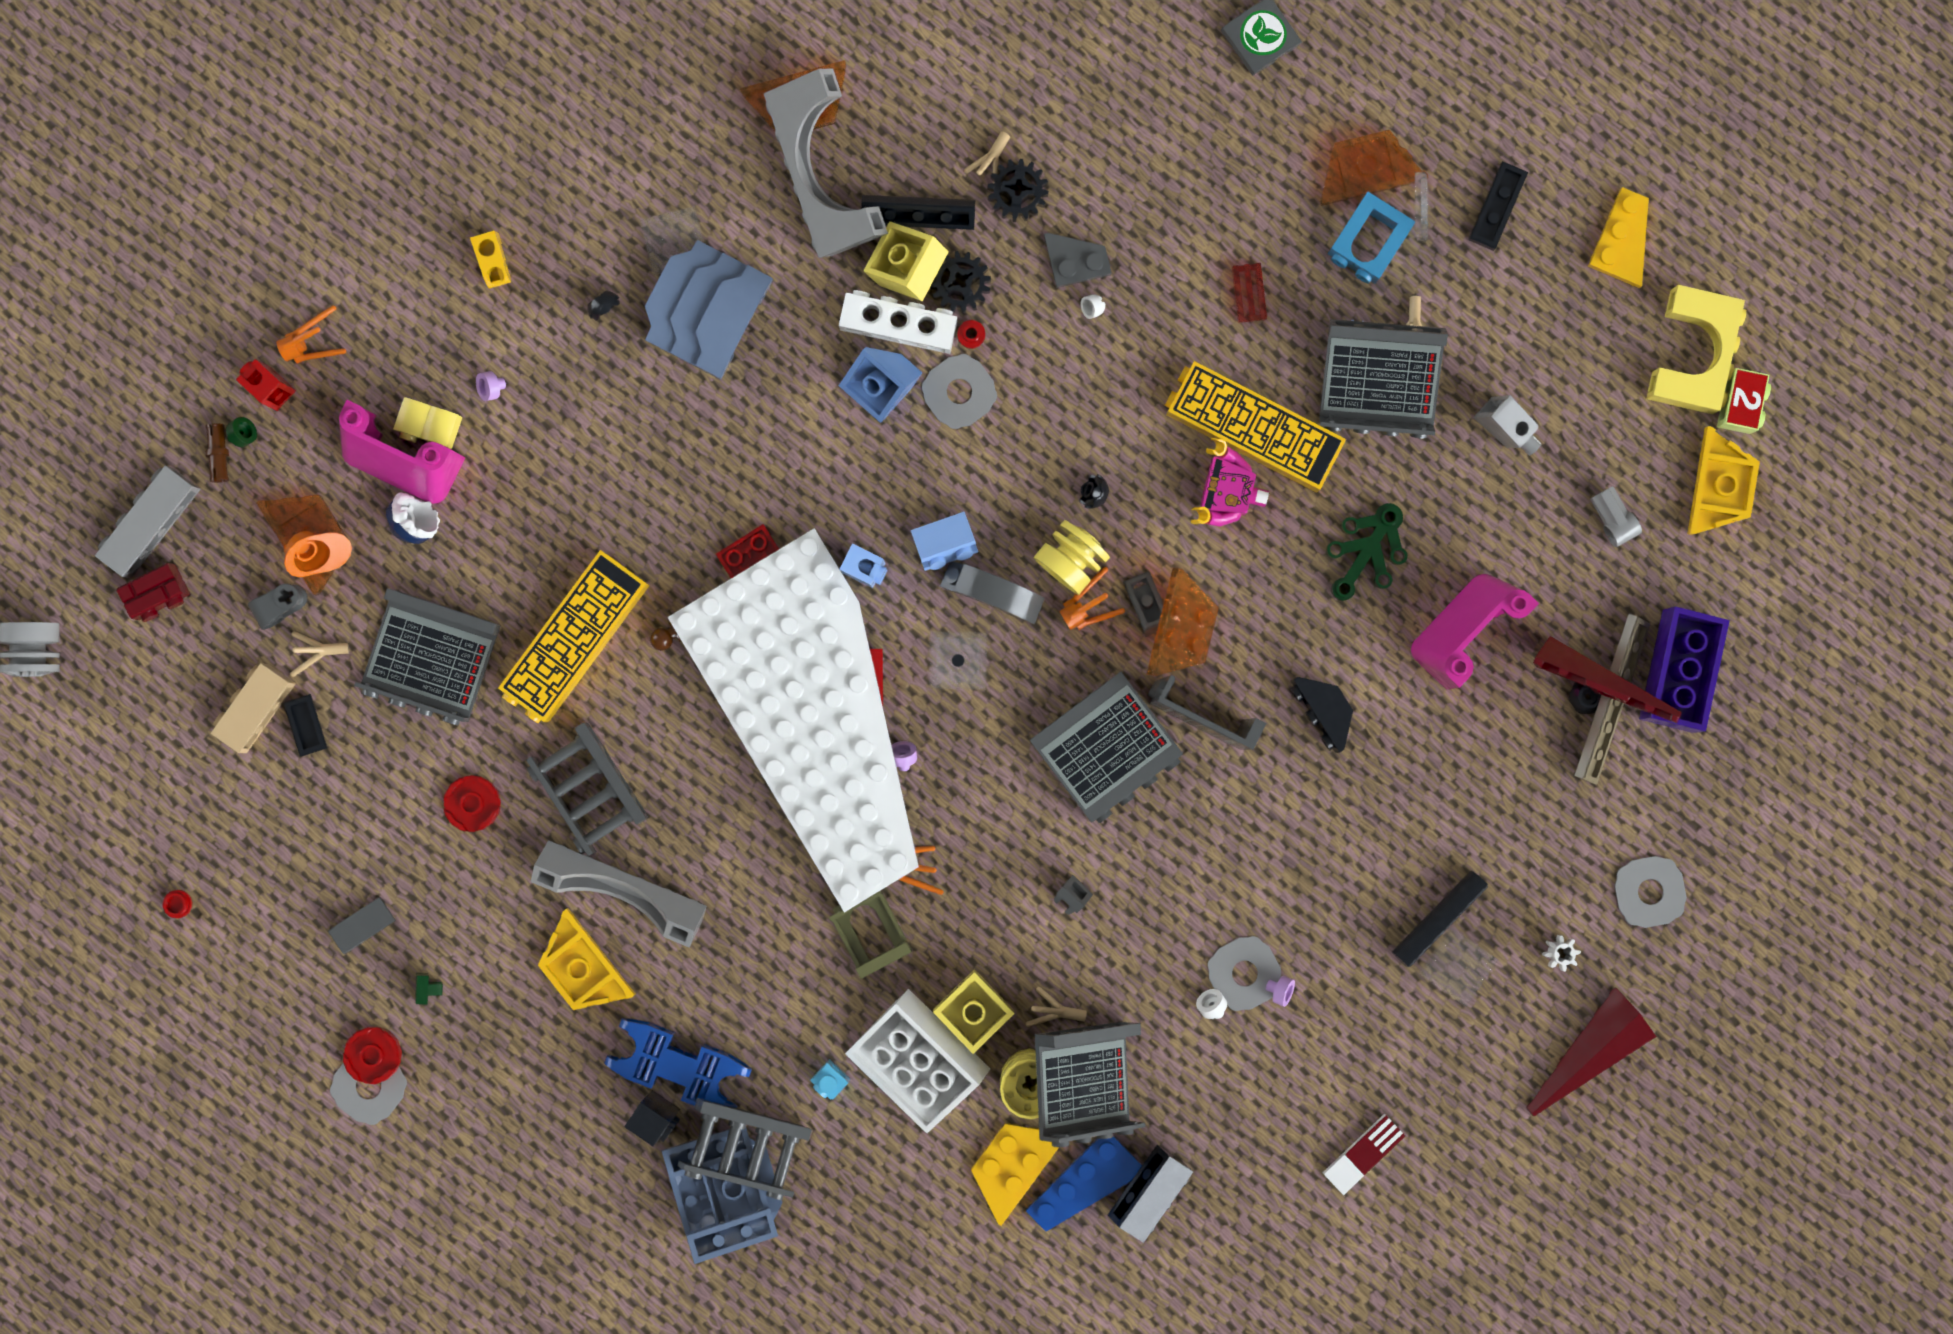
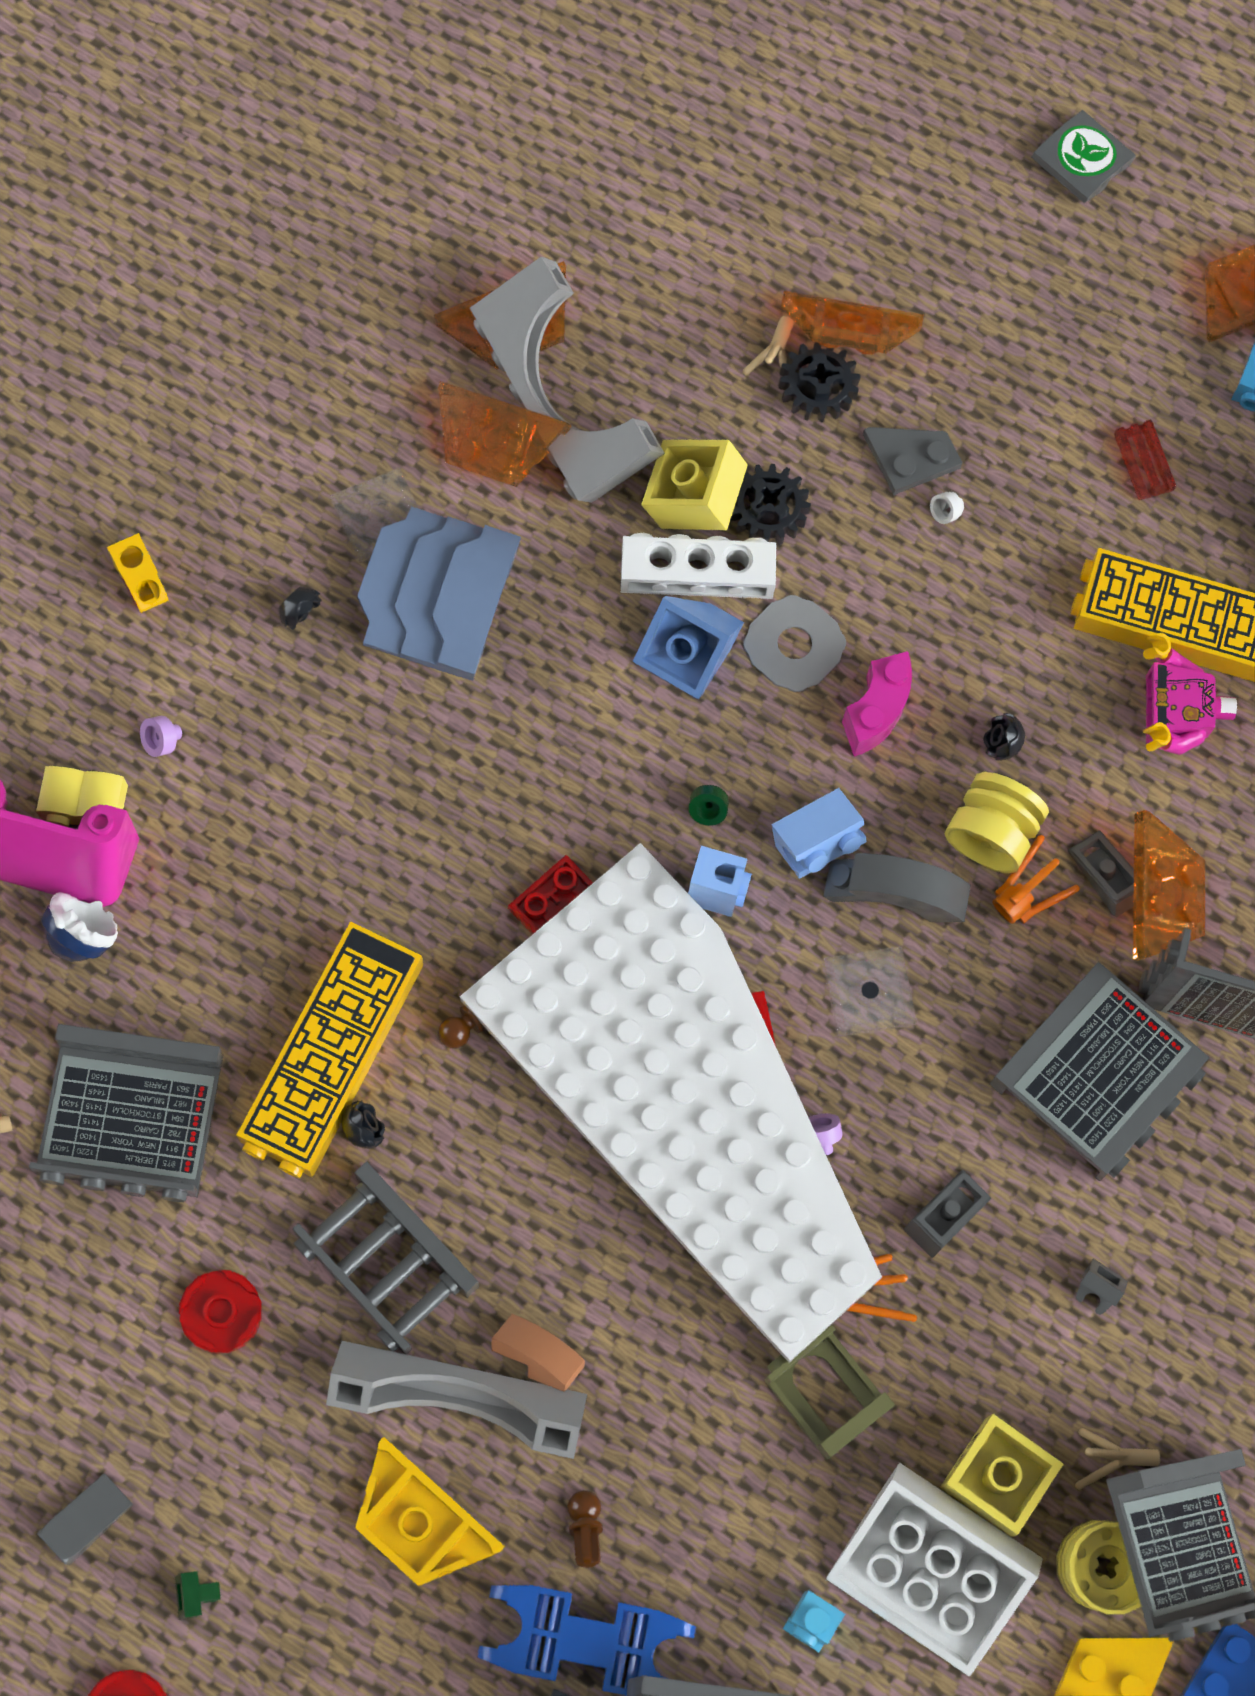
camera: 15 degrees left, 15 degrees down
(587, 694) = (362, 1126): none -> black plate
(680, 870) = (547, 1356): none -> nougat slope
(693, 979) = (584, 1509): none -> reddish brown axle
(766, 195) = (494, 435): none -> clear orange wing
(871, 505) = (708, 805): none -> dark green tile
(924, 211) = (730, 422): black brick -> none
(974, 342) = (792, 576): red plate -> none
(979, 826) = (946, 1214): none -> dark grey slope
(1010, 453) = (881, 707): none -> dark pink brick
(1050, 148) = (850, 324): none -> clear orange wing

